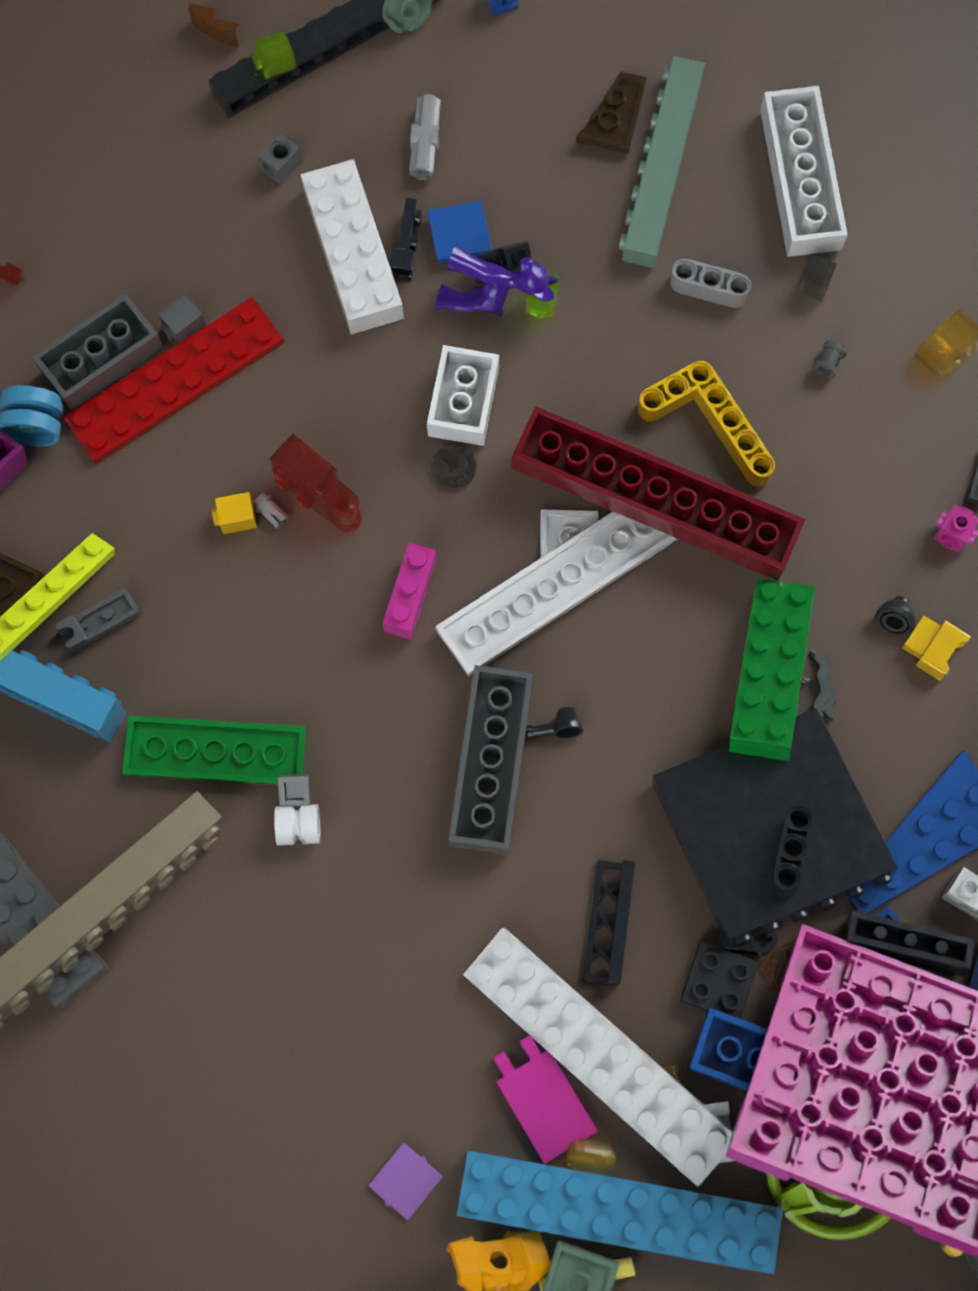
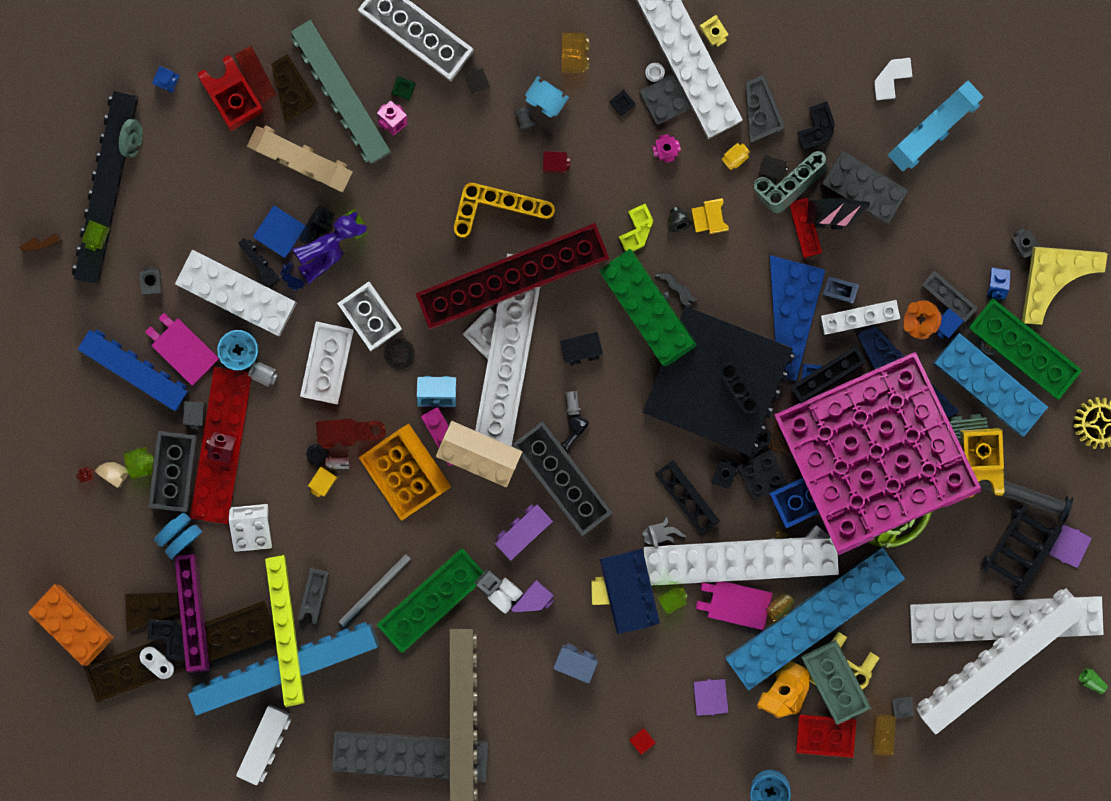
camera: 45 degrees left, 15 degrees up
(39, 302) = (113, 473): none -> tan brick
(71, 309) = (139, 462): none -> clear neon green brick
(110, 486) = (250, 527): none -> white bracket
(168, 680) = (374, 590): none -> light grey piece
(169, 221) = (133, 370): none -> blue brick
(169, 371) = (220, 447): none -> dark red brick
(240, 252) = (182, 349): none -> dark pink tile
(260, 481) = (316, 454): none -> black tile
(276, 1150) = (642, 741): none -> red tile
(289, 283) = (233, 360): none -> medium azure wheel
(293, 349) = (263, 374): none -> light grey brick
(293, 977) = (575, 663): none -> sand blue brick
(324, 860) = (534, 598): none -> medium lavender slope
(331, 588) = (405, 472): none -> light orange slope
(369, 401) = (327, 363): none -> white plate
(389, 776) = (523, 531): none -> medium lavender brick
(406, 928) = (599, 592): none -> light yellow brick
(421, 292) = (294, 282): none -> clear blue bracket
(425, 137) = (210, 197): light grey piece -> none
(428, 636) = (479, 454): none -> tan slope
(437, 958) = (629, 591): none -> dark blue slope
(452, 537) = (436, 391): none -> medium azure brick
(477, 1020) = (673, 599): none -> clear neon green brick
(535, 929) = (657, 533): none -> light grey piece
(549, 64) = (228, 89): none -> red brick
(552, 179) = (300, 158): none -> tan brick
(584, 694) = (572, 403): none -> light grey pin
(593, 71) = (256, 75): none -> clear red slope
(654, 645) = (581, 347): none -> black brick
(677, 937) = (724, 474): none -> black brick
(690, 229) = (391, 117): none -> dark pink brick
(701, 272) = (435, 129): light grey beam -> none
(731, 218) = (403, 88): none -> dark green tile
(820, 427) = (555, 162): none -> dark red brick
(852, 583) = (642, 221): none -> neon yellow tile
(876, 354) = (546, 96): none -> medium azure brick
(951, 443) = (622, 103): none -> black tile

